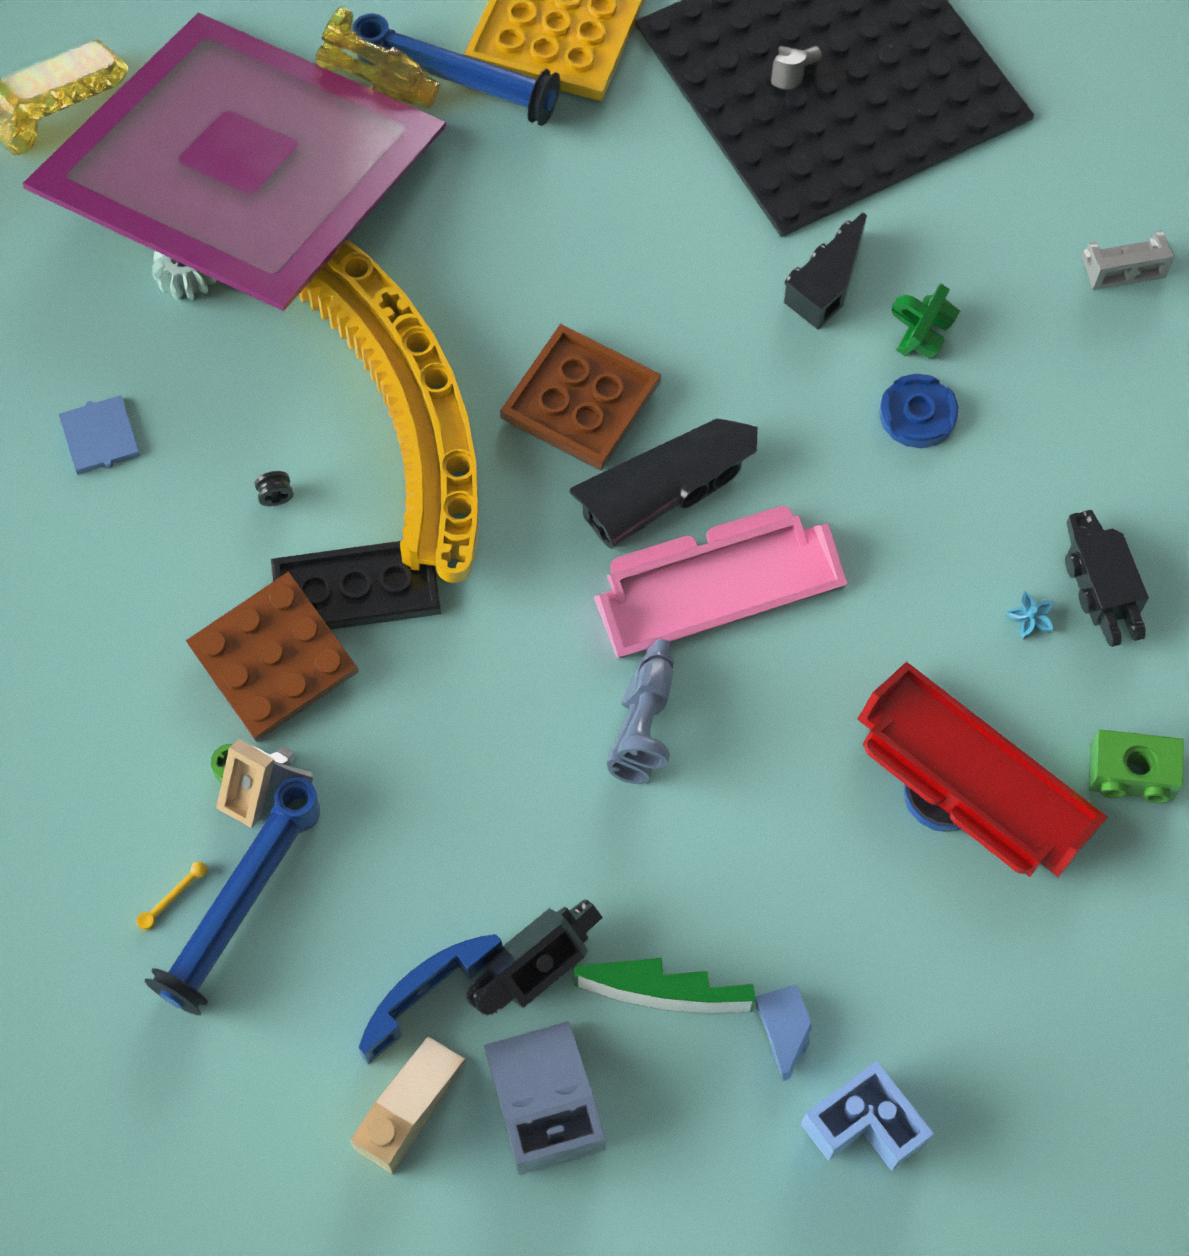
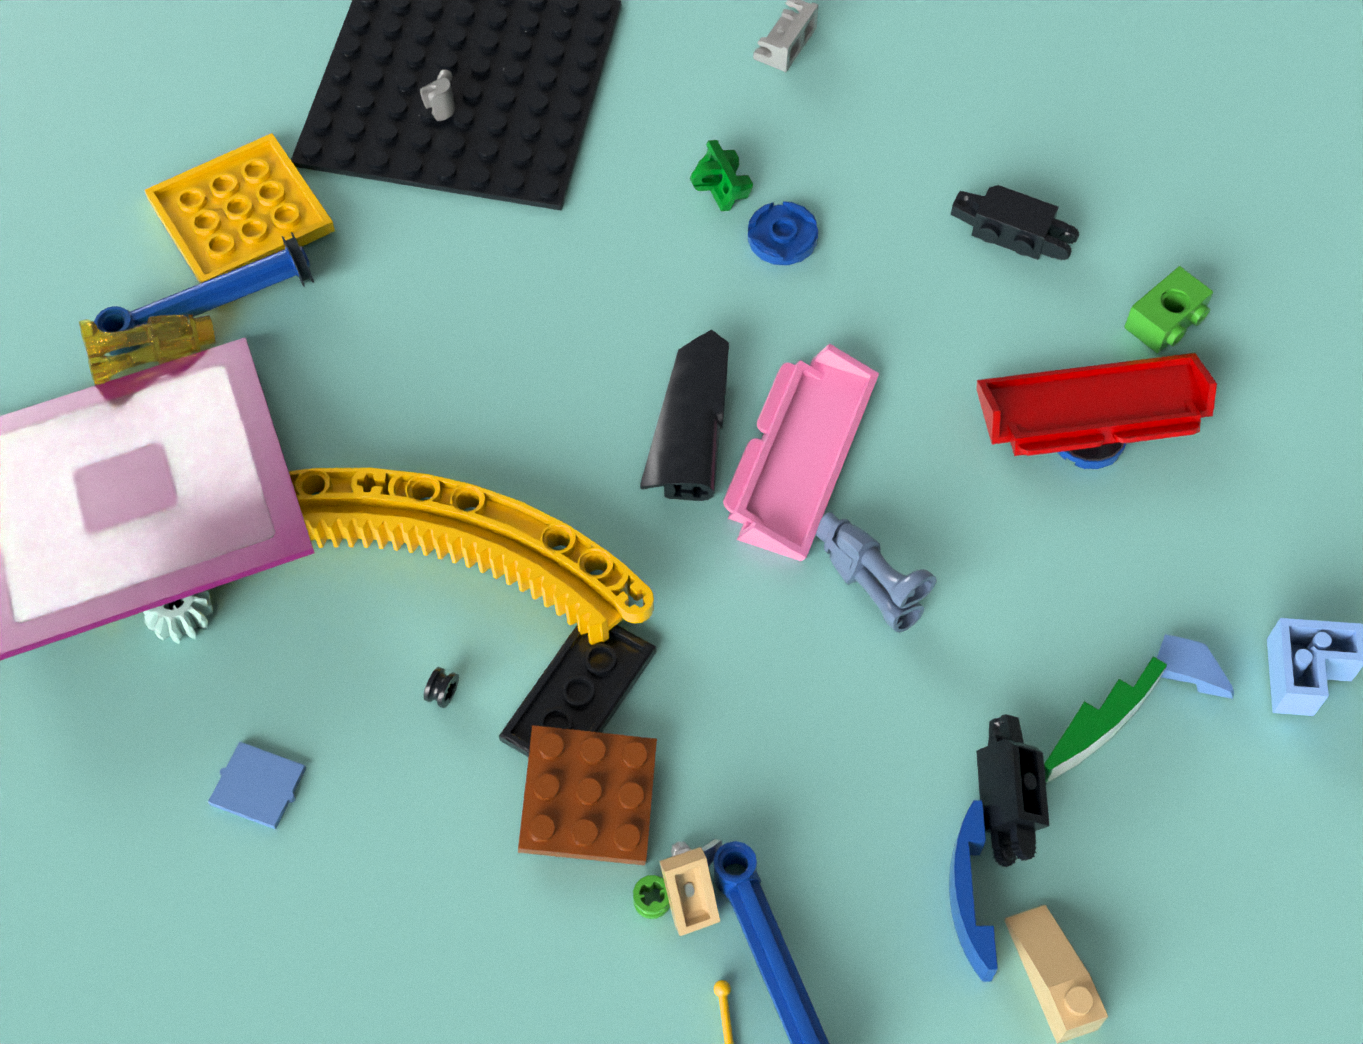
camera: 50 degrees left, 5 degrees down
(545, 1098) = (1128, 866): sand blue slope -> none
(580, 396) = (569, 424): dark orange plate -> none
(822, 283) = (631, 201): black slope -> none
(1032, 615) = (1001, 286): medium azure plant -> none

